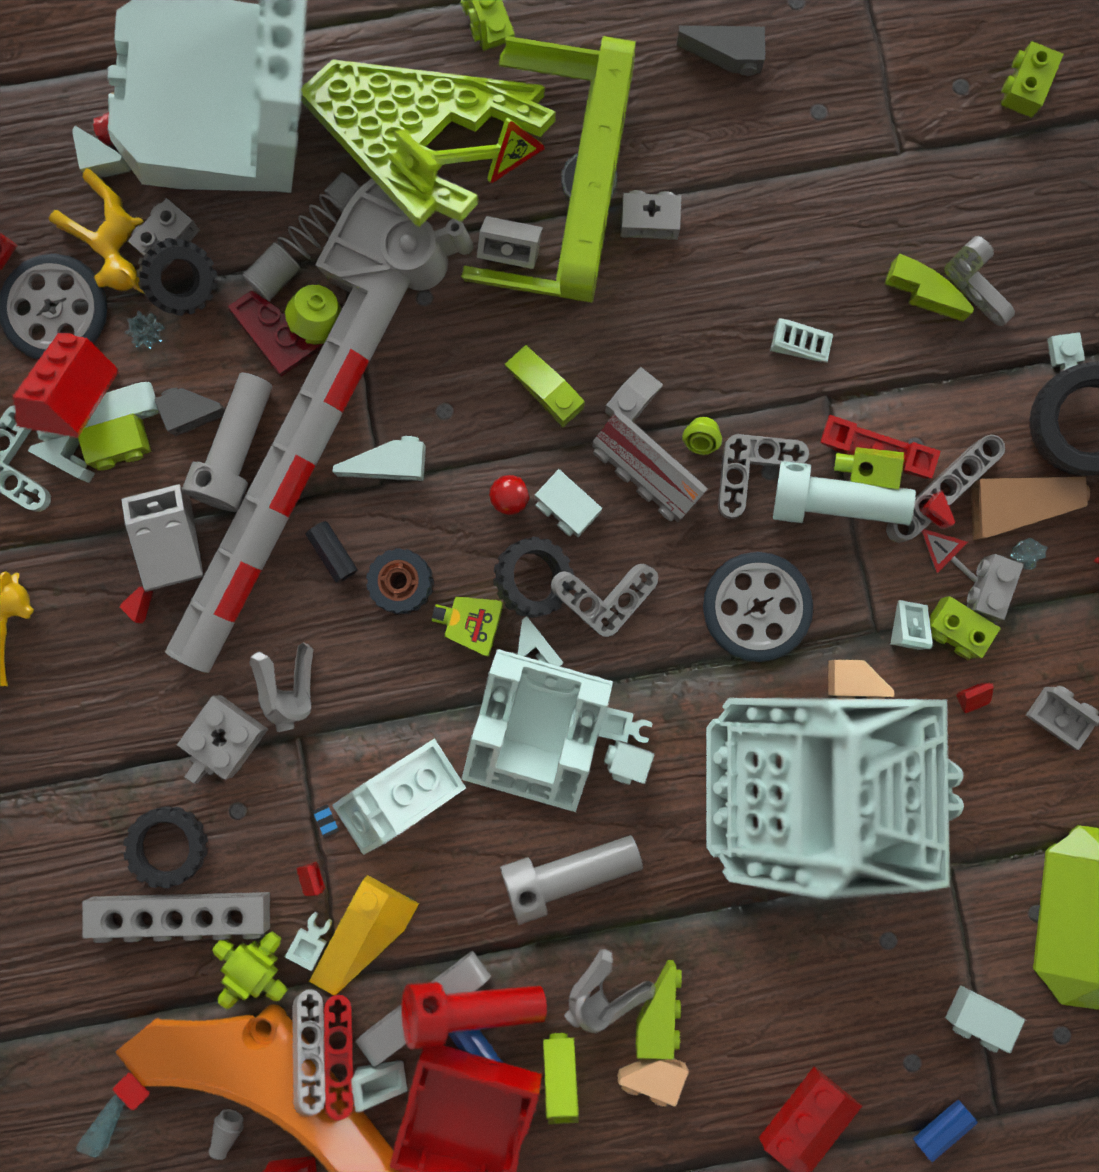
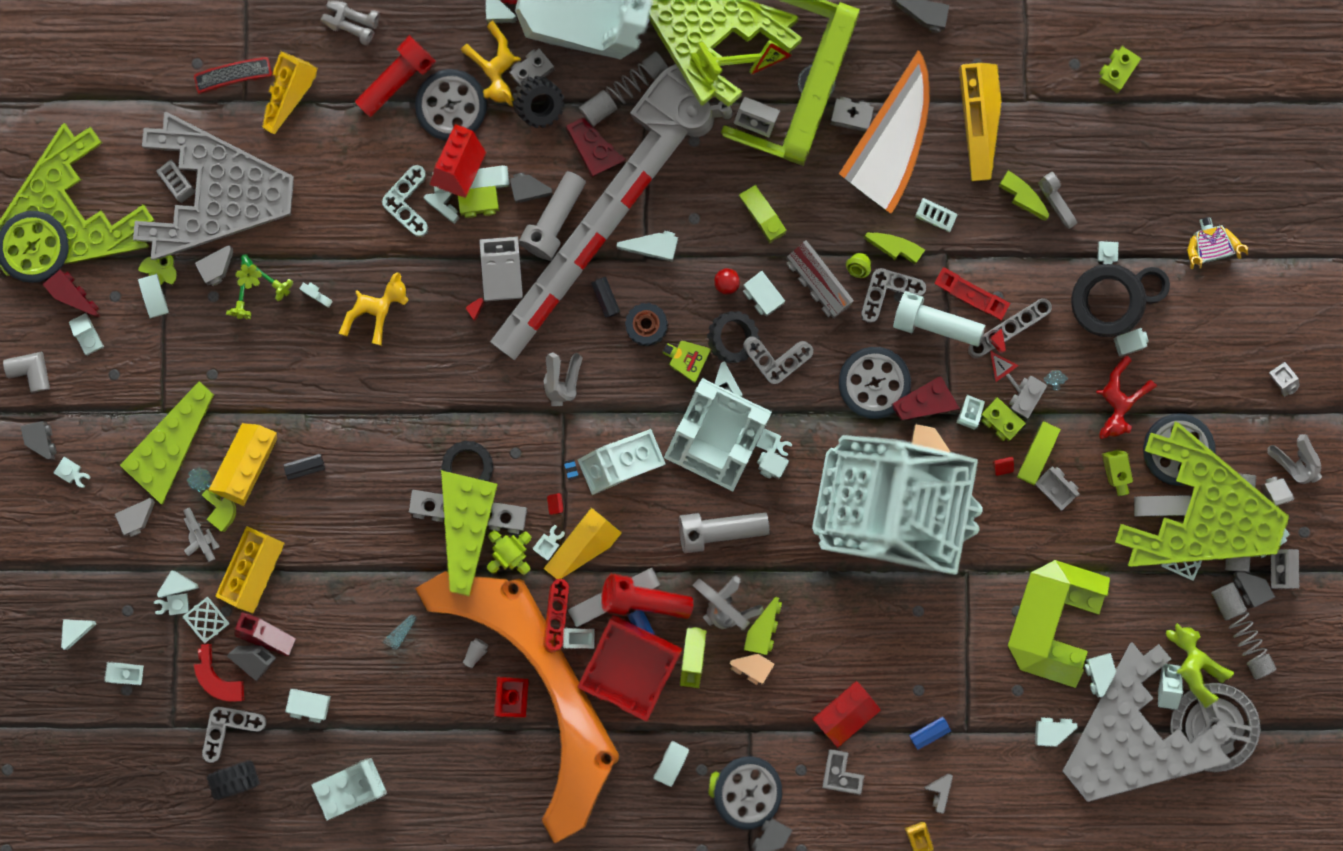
camera: 10 degrees right, 0 degrees up
(131, 1091) = (423, 613): red slope -> none
(137, 326) = (504, 128): clear light blue gear -> none
(170, 933) = (466, 519): none -> lime wing
(204, 742) = (503, 404): light grey hinge -> none
(312, 313) = (621, 141): lime cone -> none
(312, 1052) = (535, 607): light grey beam -> none
(576, 993) = (716, 599): none -> light grey beam
(634, 395) = (819, 231): light grey slope -> none
(716, 246) = (892, 142): none -> sticker
(750, 397) = (895, 245): none -> lime slope
(841, 182) = (981, 114): none -> yellow wedge
(841, 620) = (925, 401): none -> dark red wing
(885, 470) = (970, 309): lime torso -> none
(984, 1019) = (967, 667): light aqua brick -> none
(1017, 502) = (1054, 346): medium nougat slope -> none
(1026, 668) = (1038, 453): none -> lime slope

